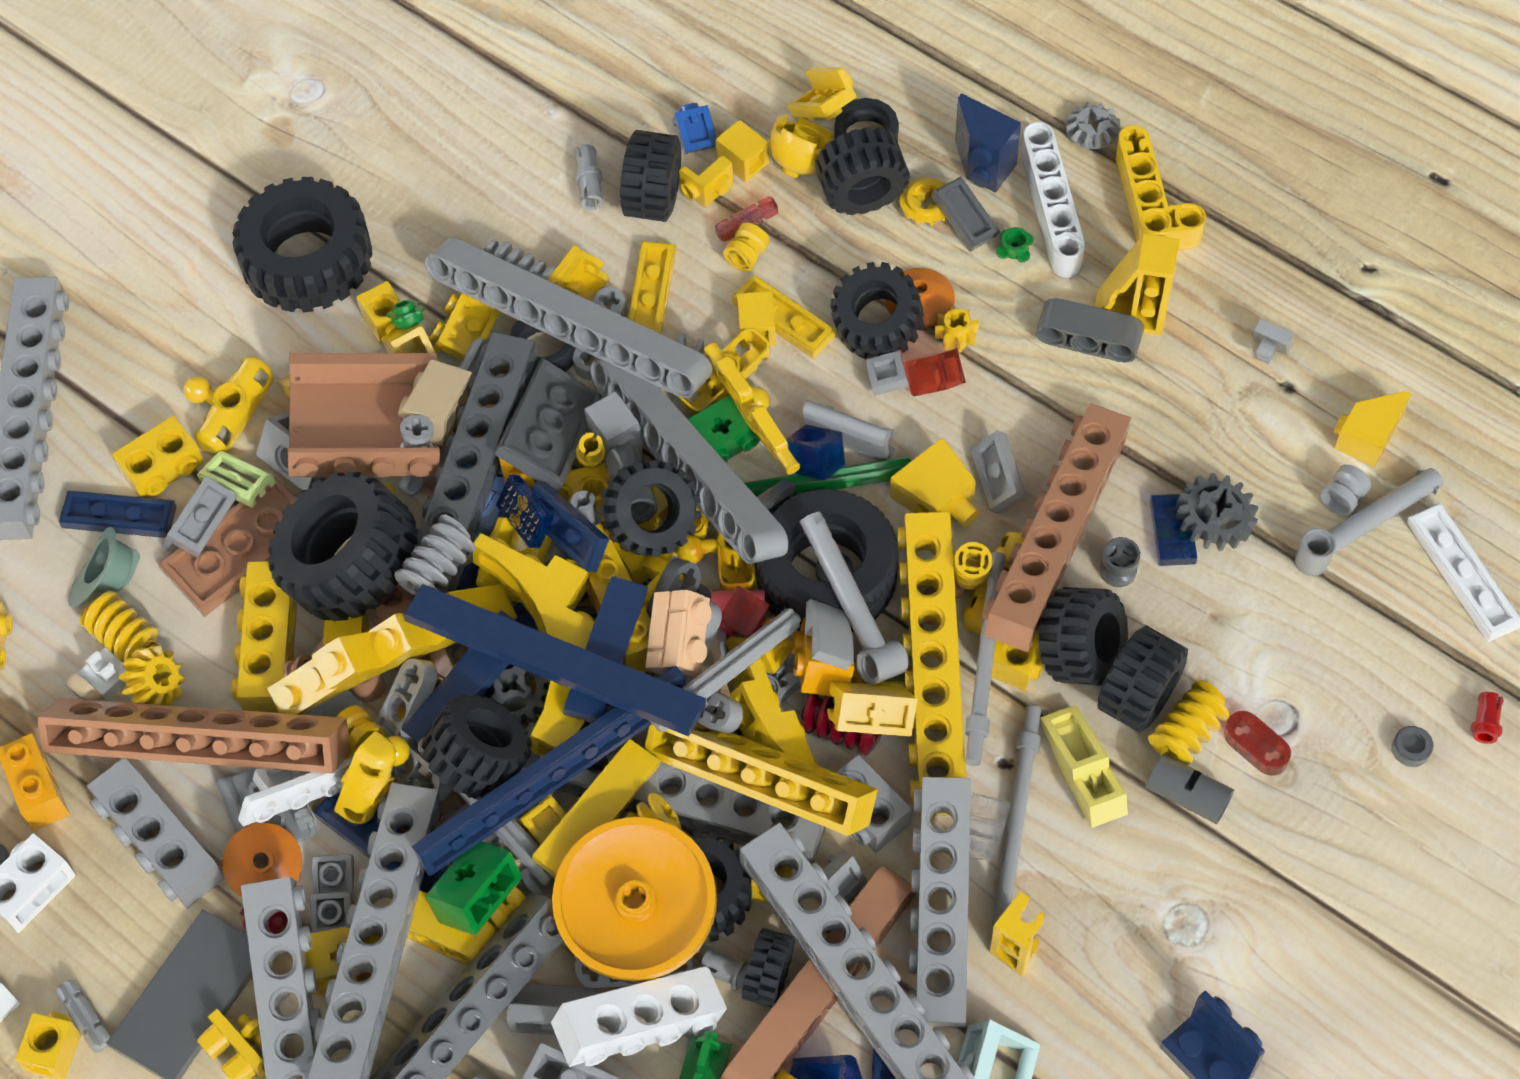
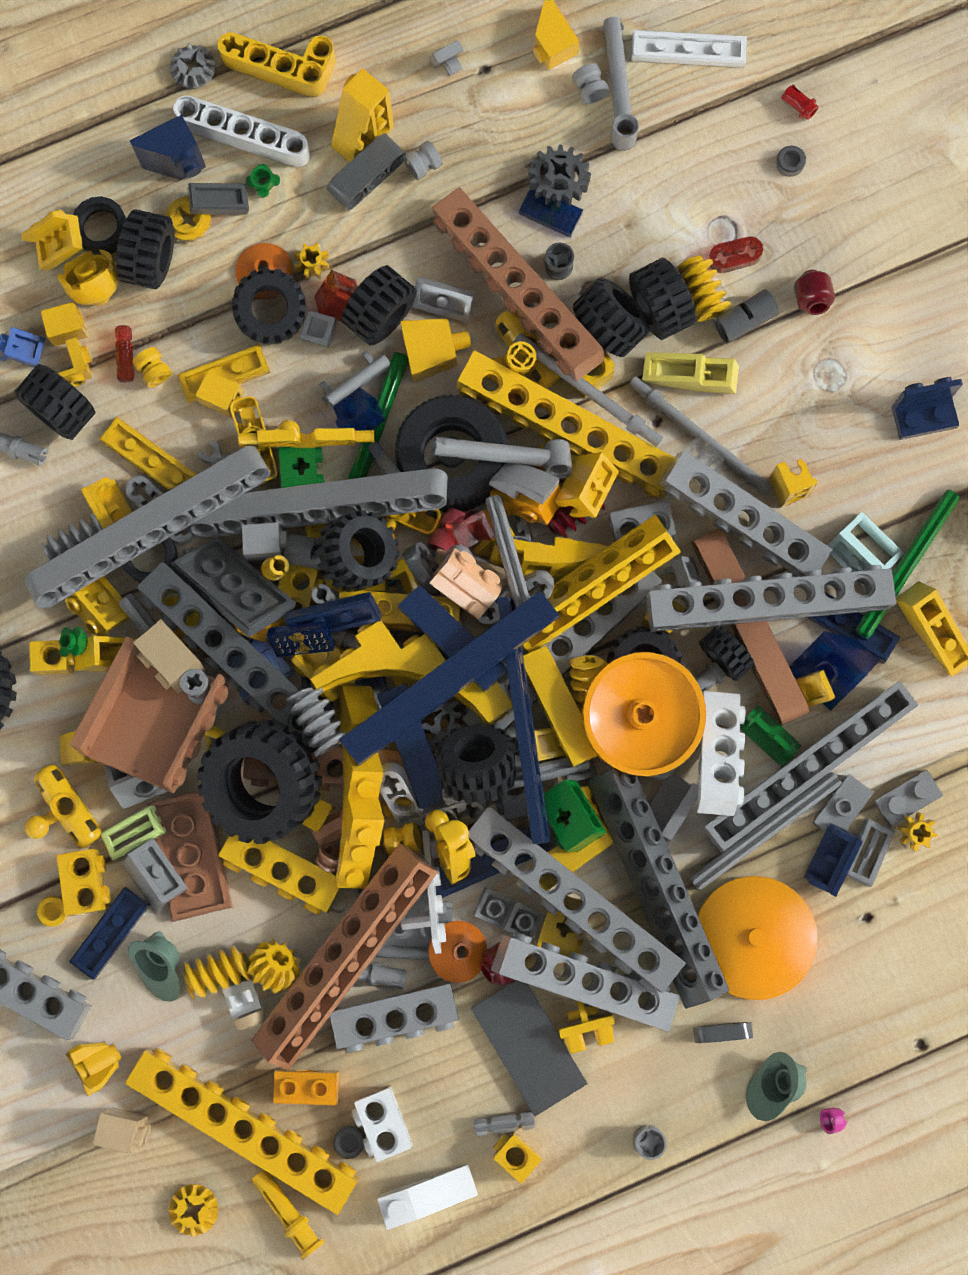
camera: 60 degrees left, 20 degrees up
(109, 445) = (51, 911): none -> yellow tile
(195, 790) = (383, 975): none -> light grey pin
(944, 404) = (378, 305): none -> black tyre
(1139, 374) = (420, 161): none -> light grey wheel
(1270, 848) = (814, 292): none -> dark red head

